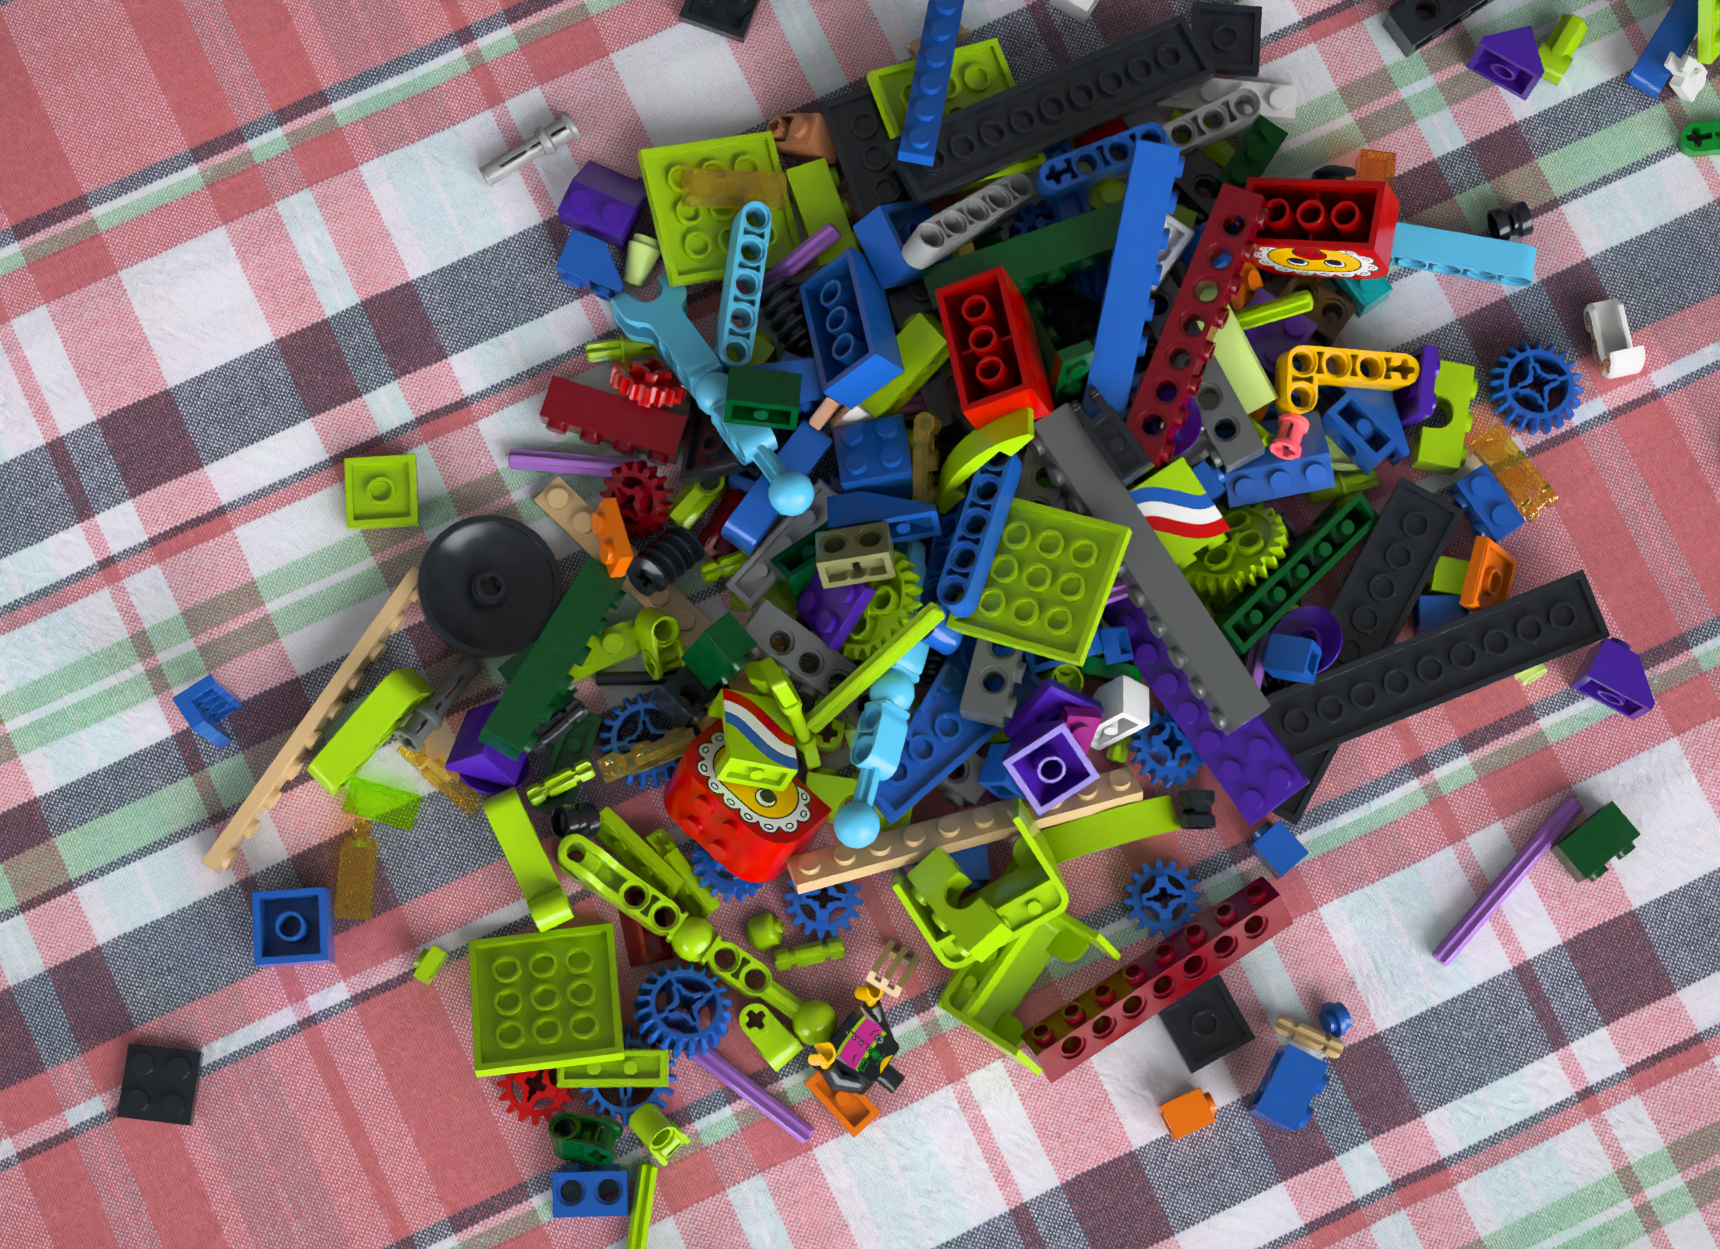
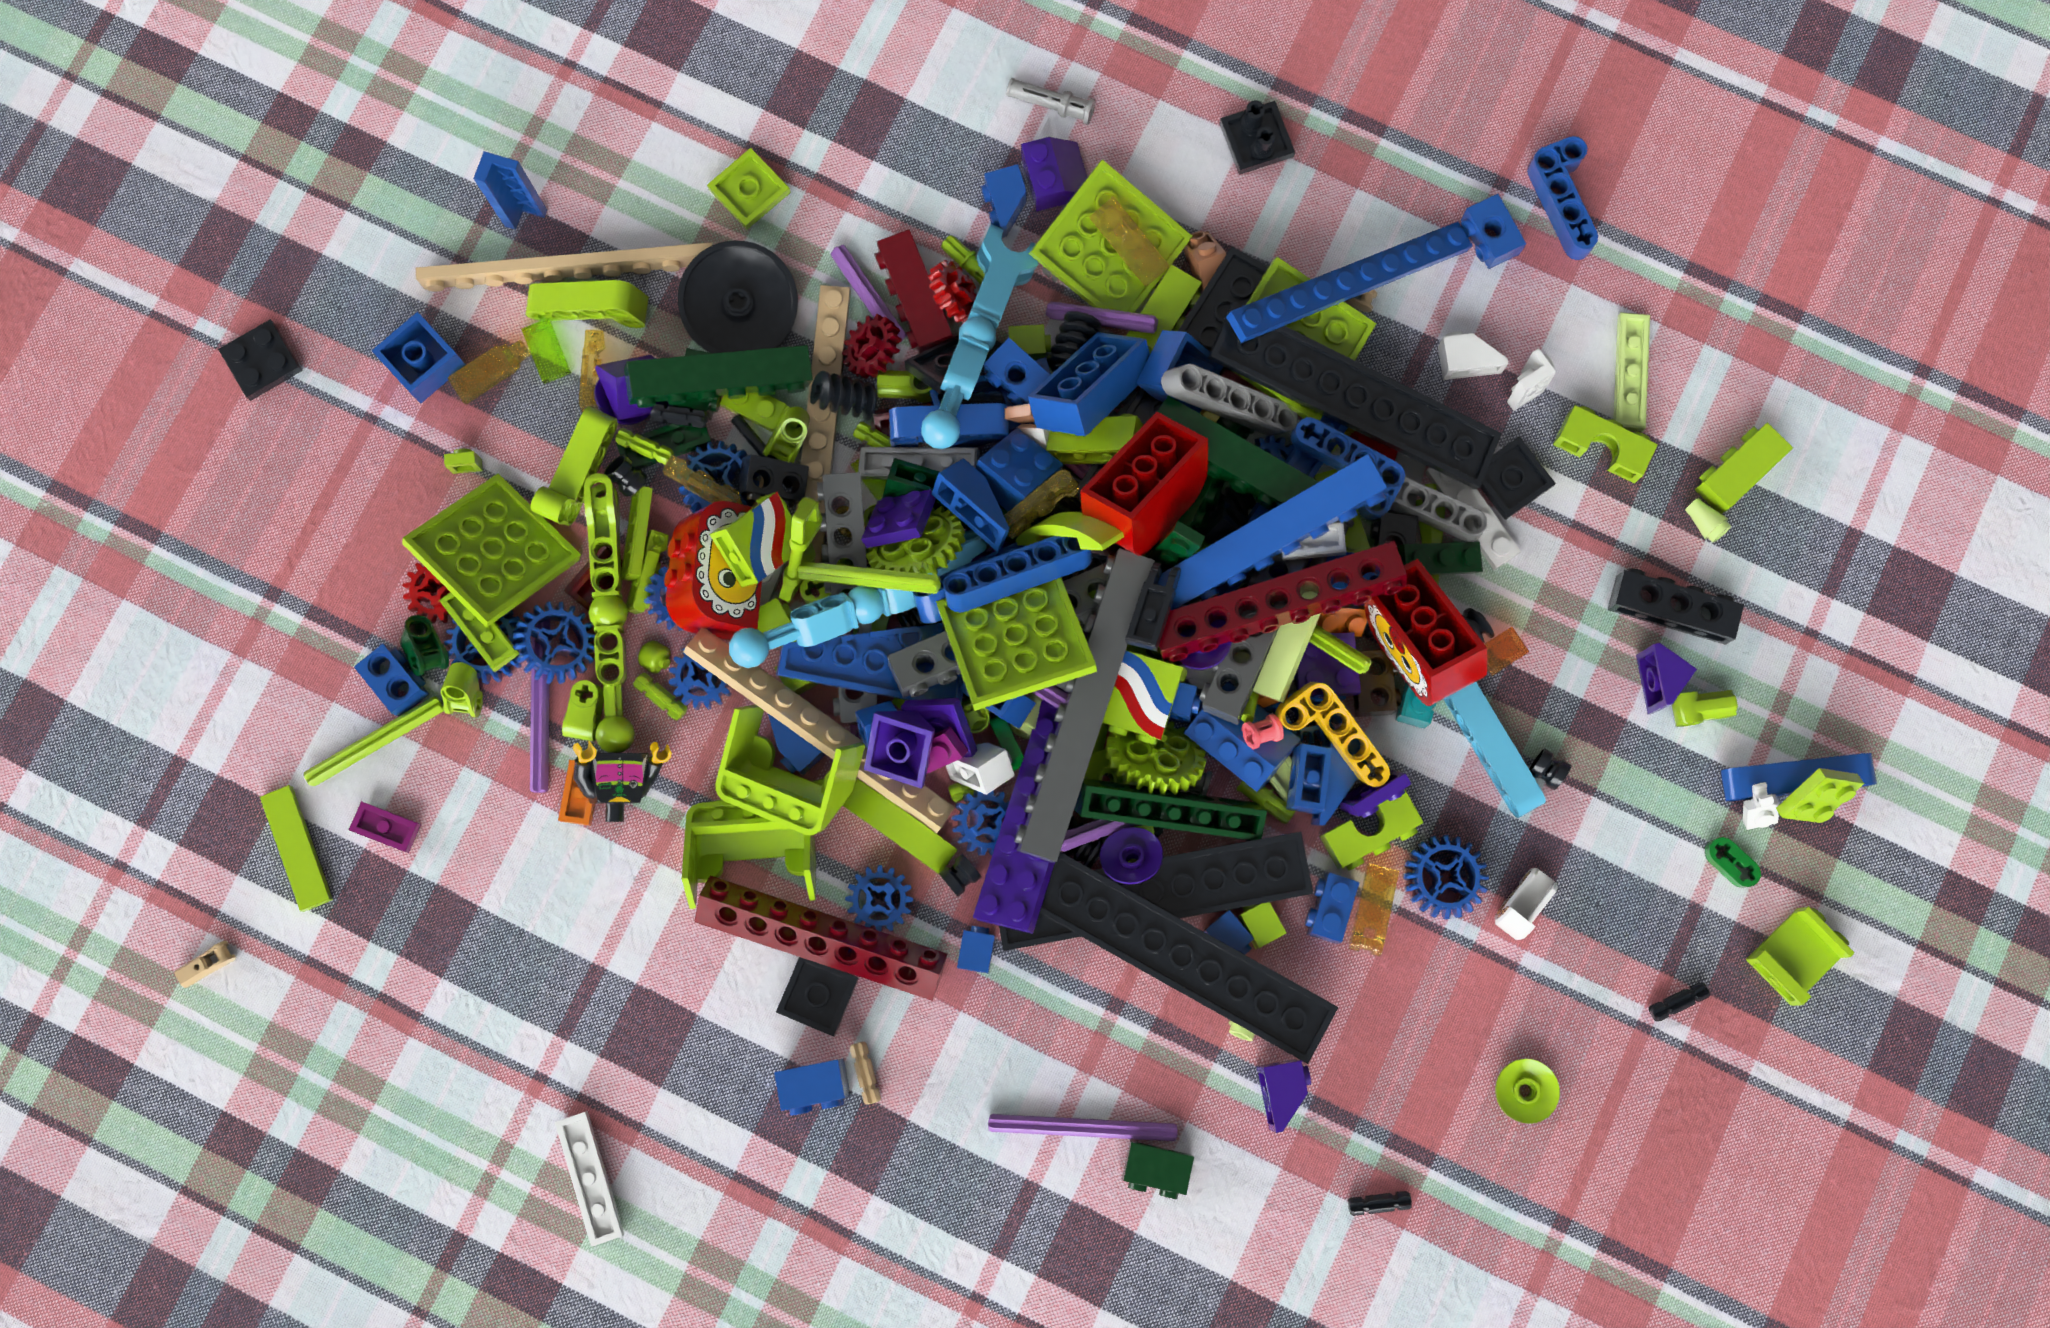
camera: 55 degrees right, 0 degrees up
(430, 718) = (673, 332): dark grey pin -> none
(612, 536) = (823, 355): orange plate -> none
(640, 259) = (1034, 224): yellowish green cone -> none
(720, 652) = (801, 472): dark green brick -> none
(749, 273) = (1075, 287): medium azure beam -> none
(762, 398) = (991, 360): dark green brick -> none
(855, 555) = (933, 503): olive brick -> none
(899, 958) = (703, 755): tan tile -> none
(939, 883) = (761, 740): lime arch -> none
(1116, 644) = (1024, 729): blue tile -> none
(1187, 1113) = (746, 1030): orange brick -> none
(1291, 658) = (1107, 853): blue brick -> none
(1335, 1018) = (890, 1081): blue plate -> none
(1487, 576) = (1282, 946): orange tile -> none

